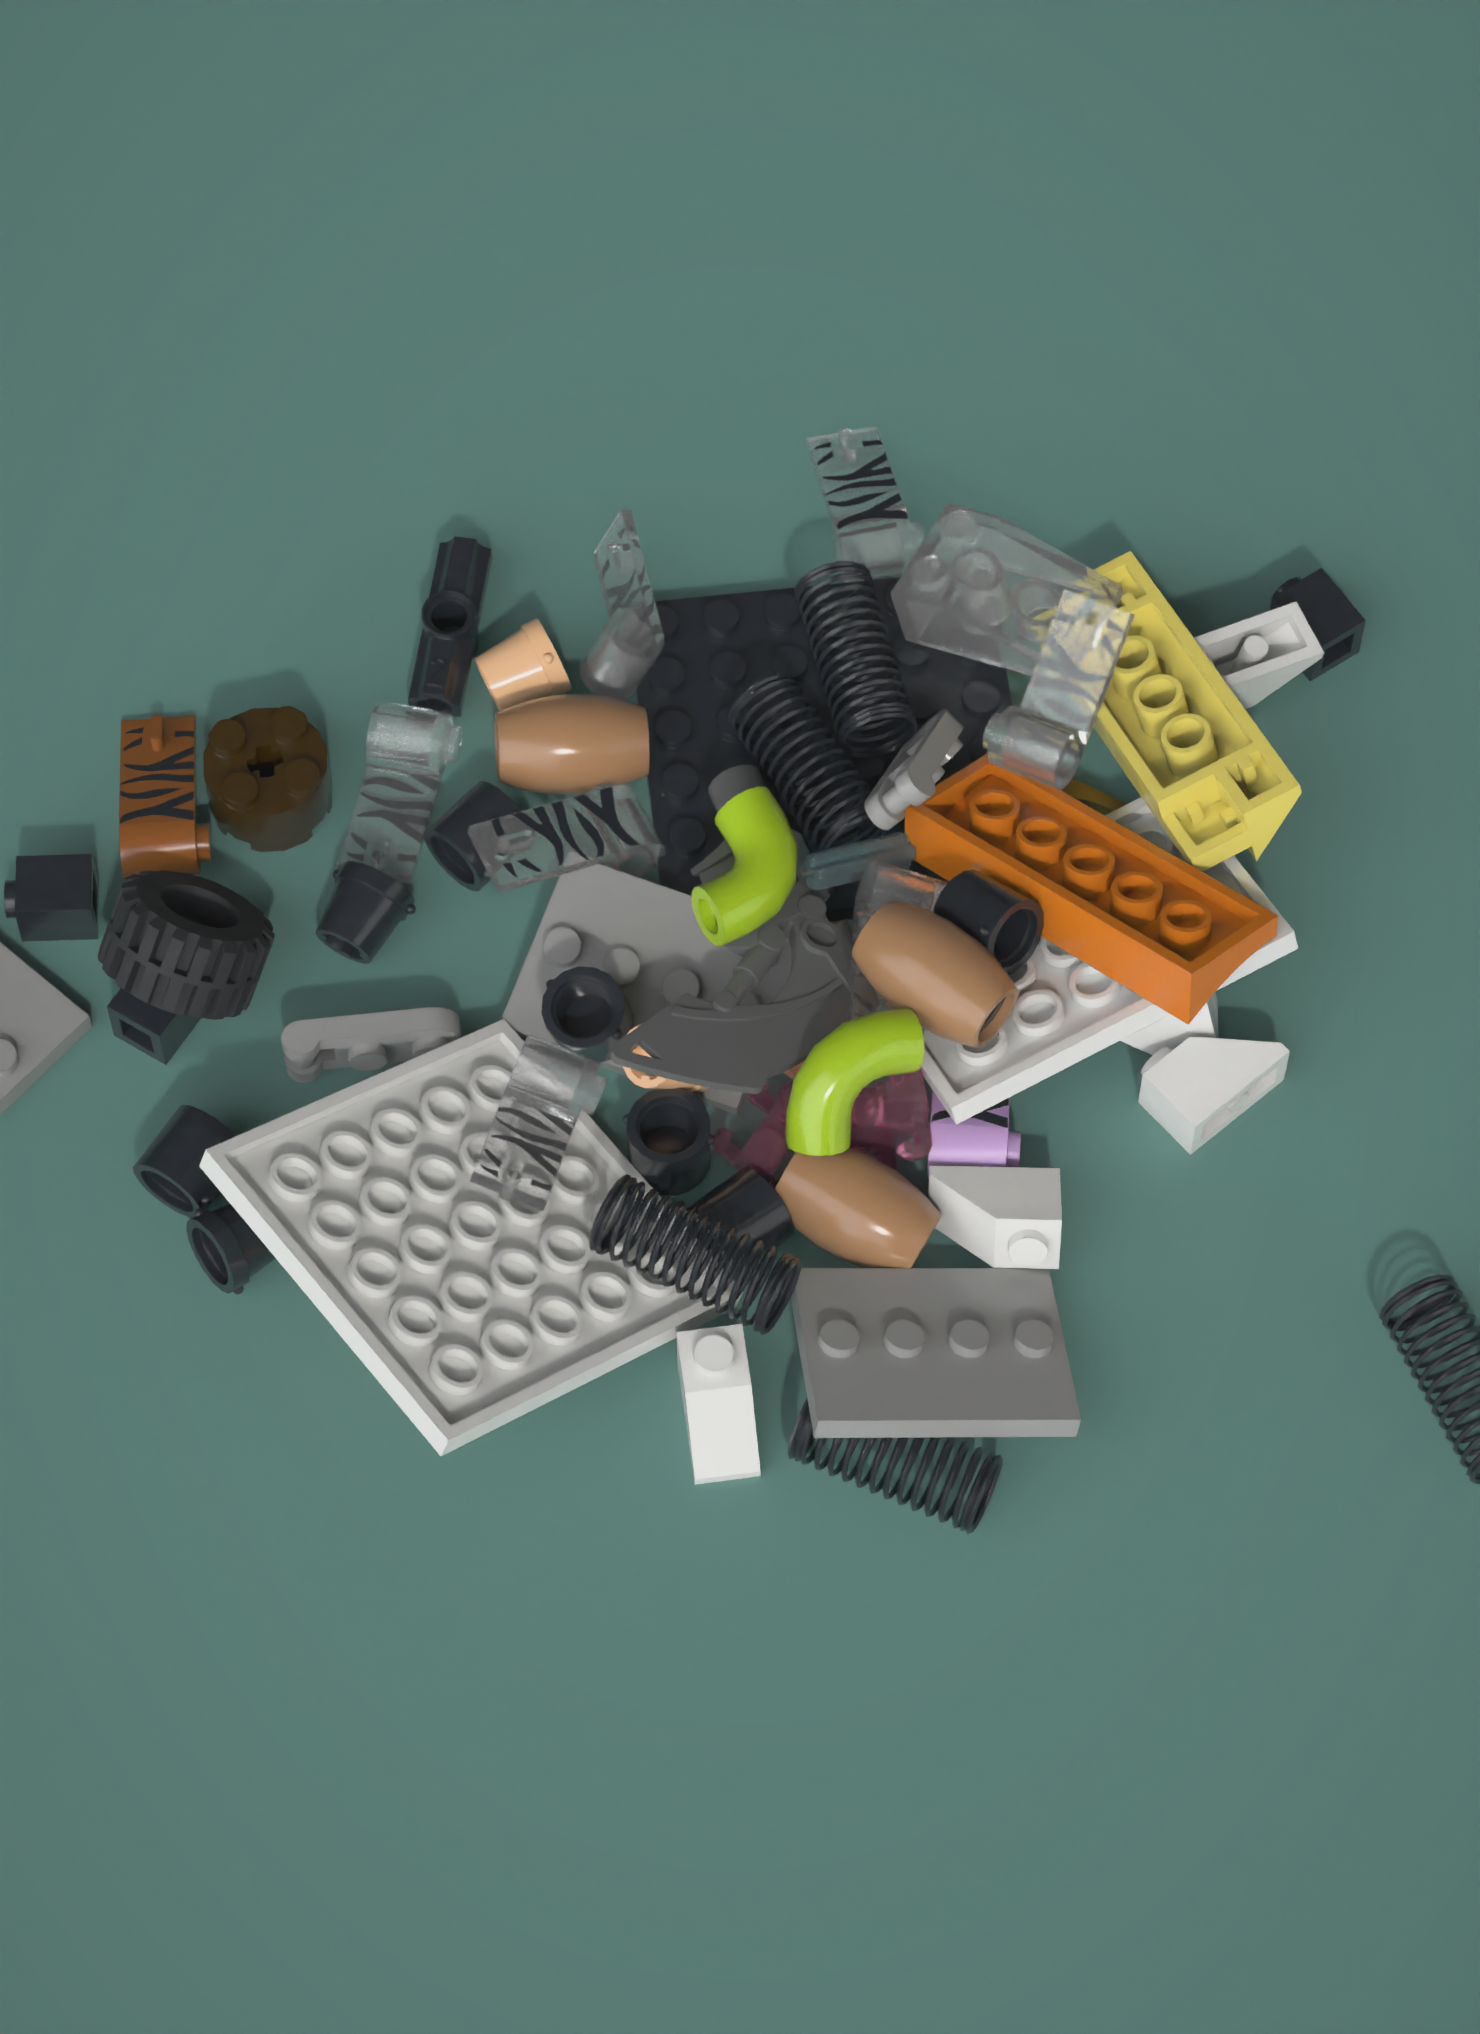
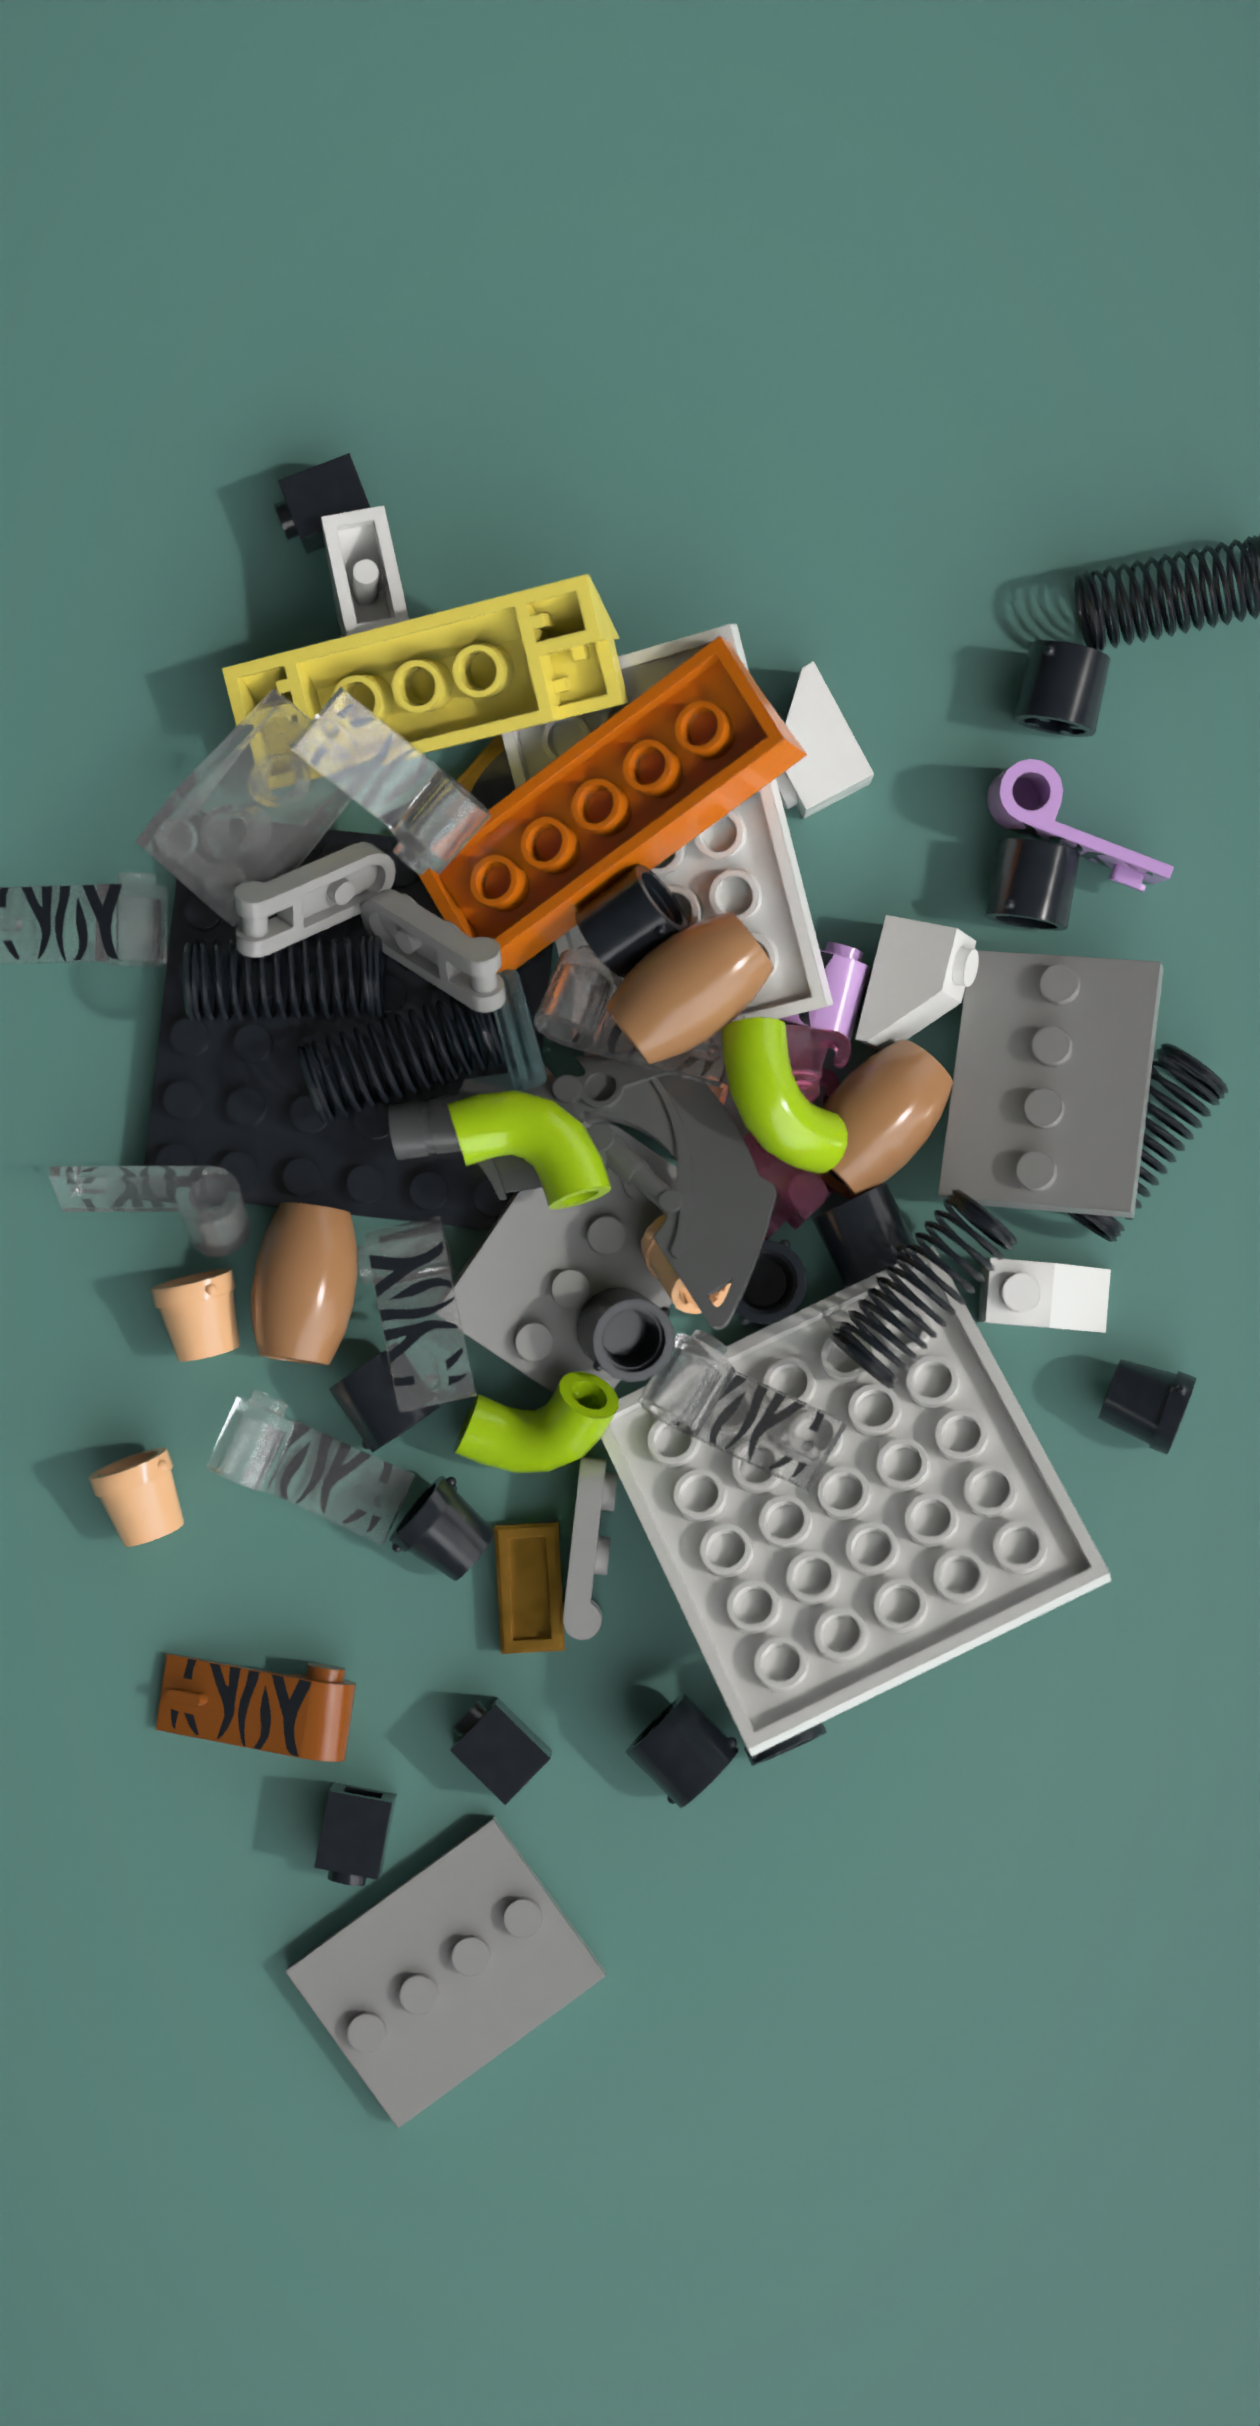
camera: 75 degrees left, 25 degrees up
(186, 944) = (492, 1739): black tyre -> none
(267, 777) = (243, 1622): dark brown brick -> none
(321, 996) = (529, 1587): none -> pearl gold tile
(339, 654) = (140, 1496): none -> light nougat piece
(457, 601) = (94, 1365): black piece -> none
(467, 968) = (542, 1436): none -> lime cylinder
(630, 1524) = (1147, 1403): none -> black piece
(935, 654) = (309, 898): none -> light grey plate
(1129, 1304) = (1032, 884): none -> black piece
(1211, 1286) = (1028, 801): none -> lavender door
(1333, 1291) = (1062, 688): none -> black piece

